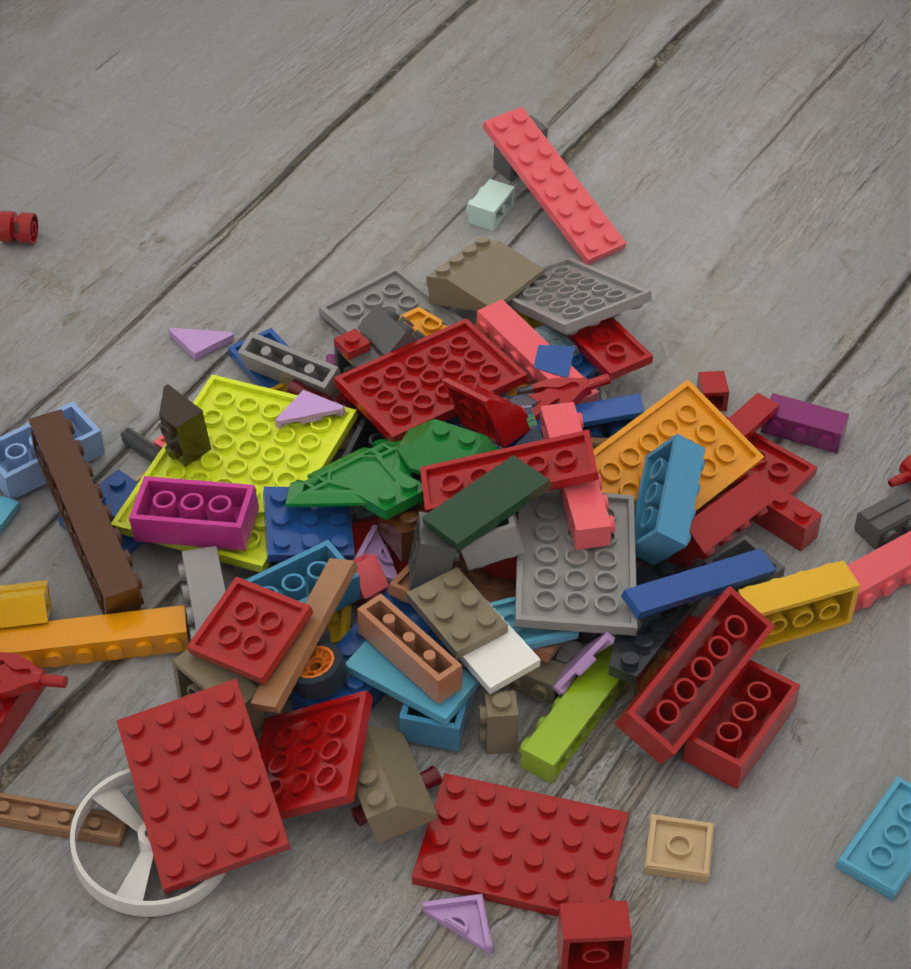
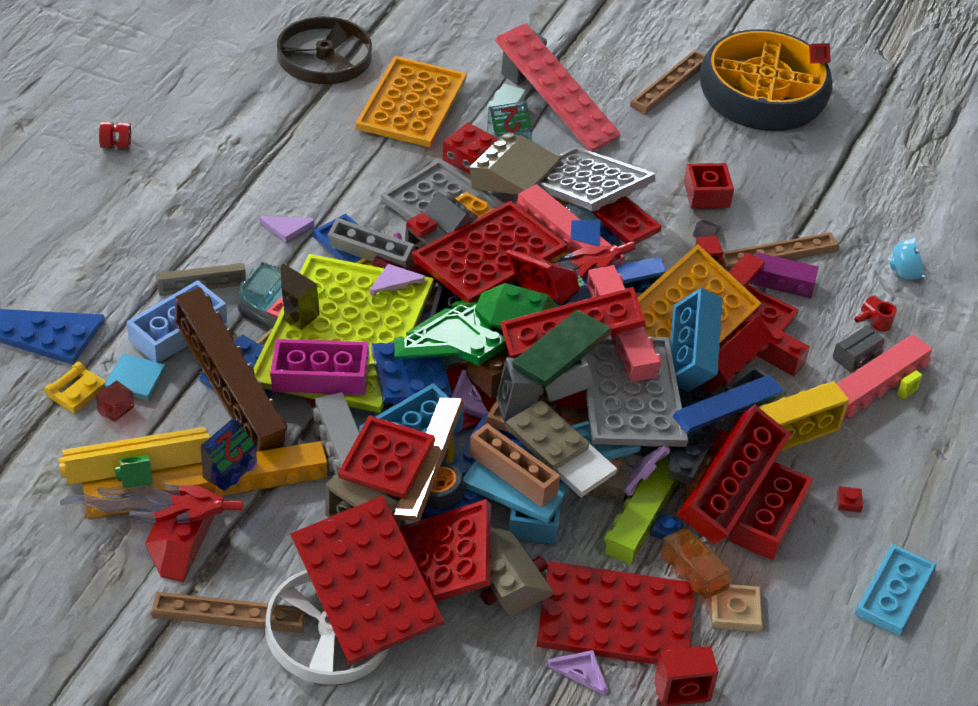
camera: 10 degrees left, 0 degrees up
(60, 617) = (228, 455): none -> clear blue slope
(89, 399) = (211, 277): none -> dark tan fence
(144, 414) = (261, 285): none -> clear light blue brick
(301, 156) = (340, 32): none -> dark brown piece
(371, 576) = (472, 412): coral brick -> none
(377, 198) = (411, 101): none -> light orange plate
(431, 250) = (466, 146): none -> red piece
(488, 220) = (509, 119): none -> slope
(499, 722) = (587, 519): dark tan brick -> none
(604, 739) = (665, 526): none -> blue plate
(632, 788) = (696, 563): none -> clear orange brick
(697, 183) = (668, 82): none -> medium nougat tile
(715, 362) = (706, 228): none -> flat silver slope
(724, 309) = (708, 185): none -> red brick
(815, 391) = (786, 249): none -> medium nougat tile
(816, 183) = (765, 80): none -> wheel
(850, 714) = (849, 499): none -> red plate
(884, 151) = (819, 53): none -> red plate

